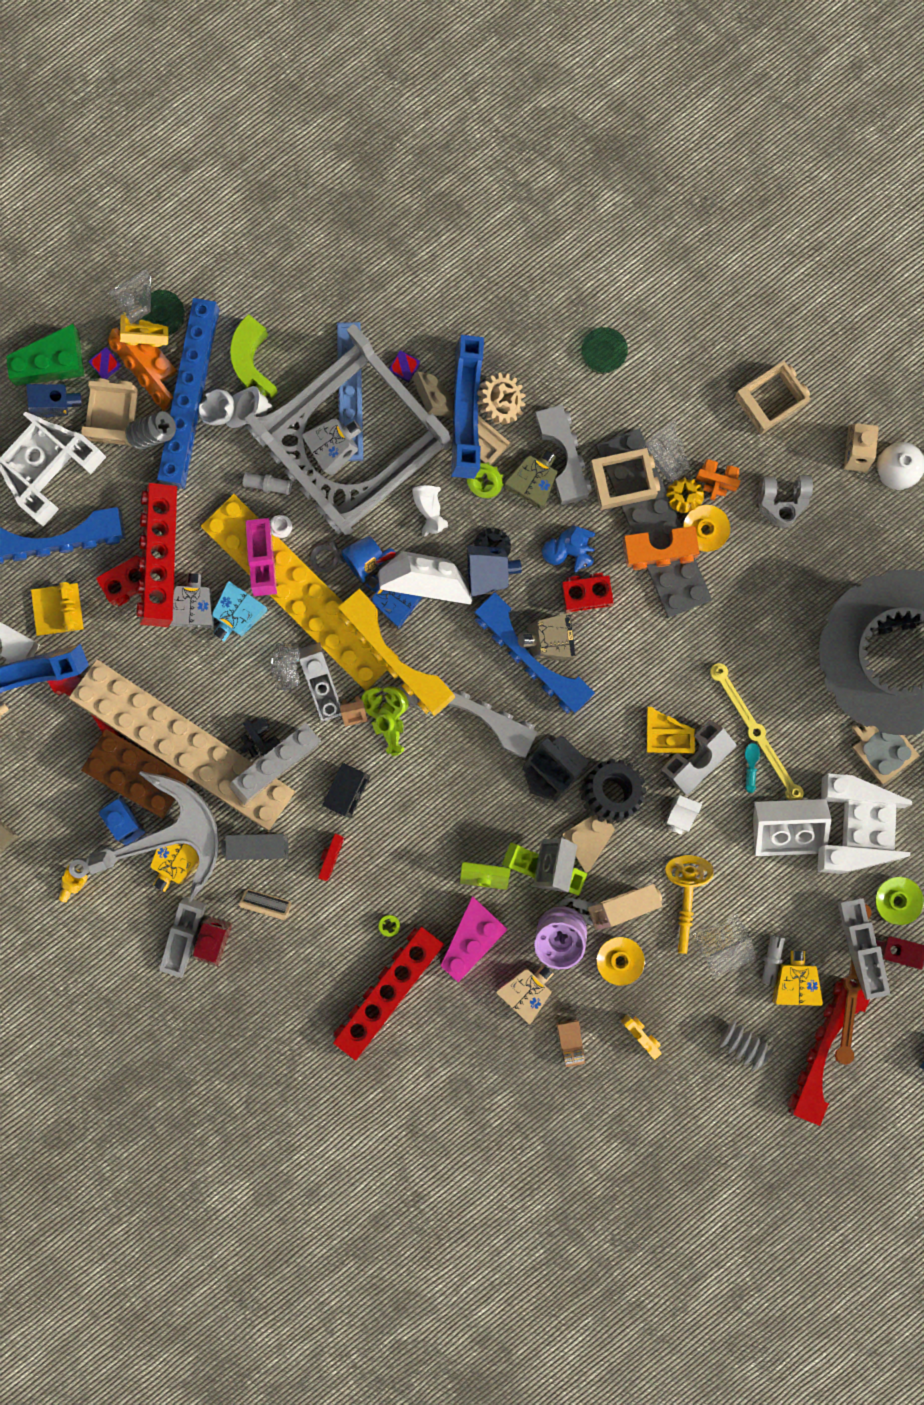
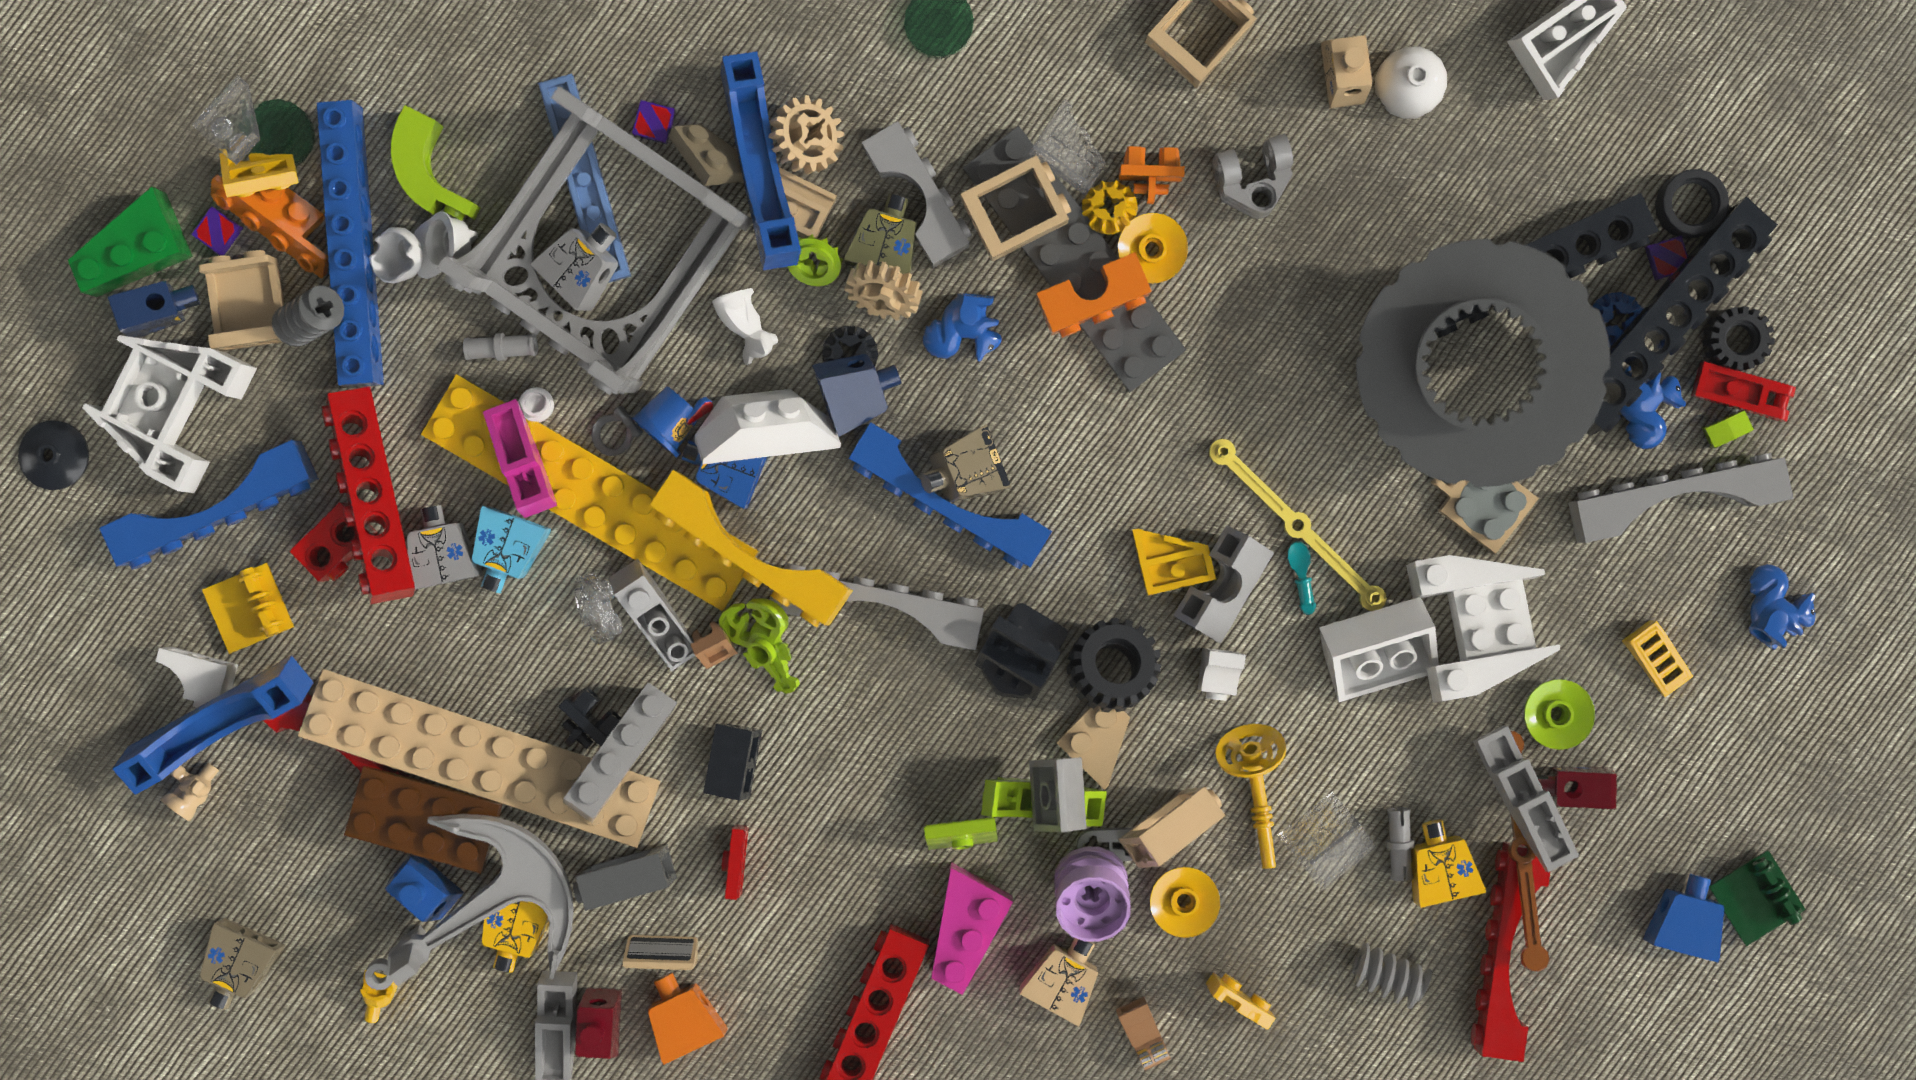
camera: 15 degrees left, 5 degrees up
(268, 952) = (682, 1019): none -> orange torso
(386, 932) = (842, 946): lime bush -> none
(525, 509) = (883, 290): none -> tan gear
(589, 599) = (1007, 395): red brick -> none

